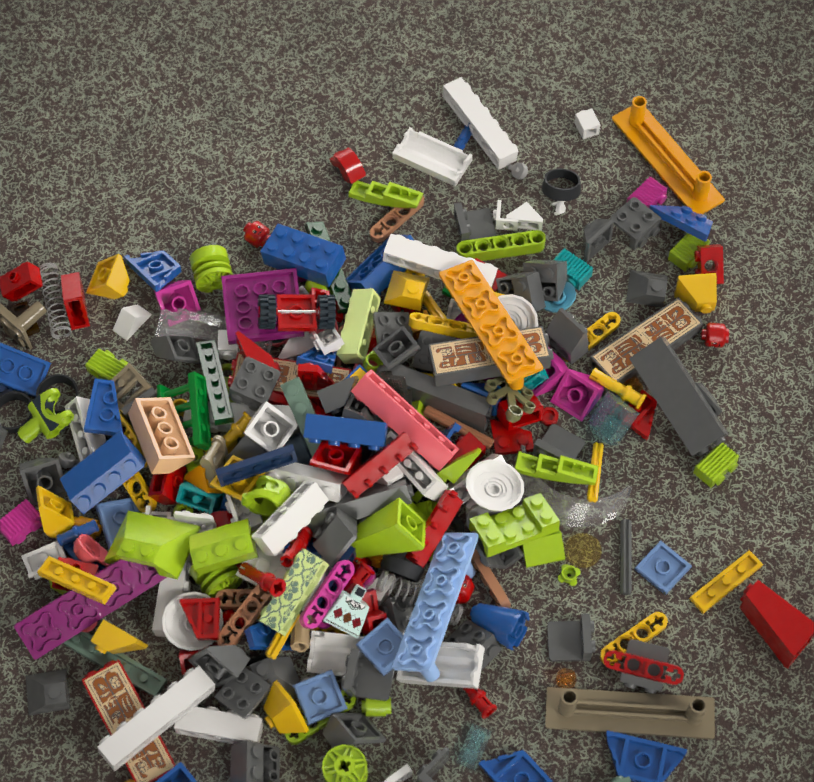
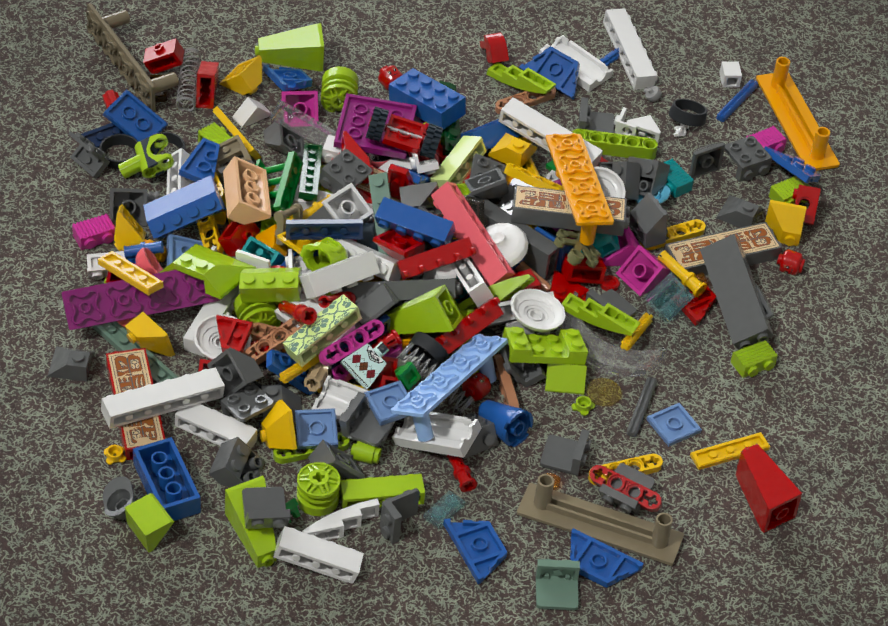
camera: 10 degrees right, 15 degrees down
(124, 352) = (232, 128): none -> yellow tile
(148, 229) = (294, 48): none -> lime slope
(391, 608) = (408, 375): none -> green tile
(407, 749) = (381, 488): none -> lime brick
(416, 173) = (557, 68): none -> blue wing
(441, 411) = (510, 241): none -> white hat
(602, 152) = (737, 100): none -> blue axle

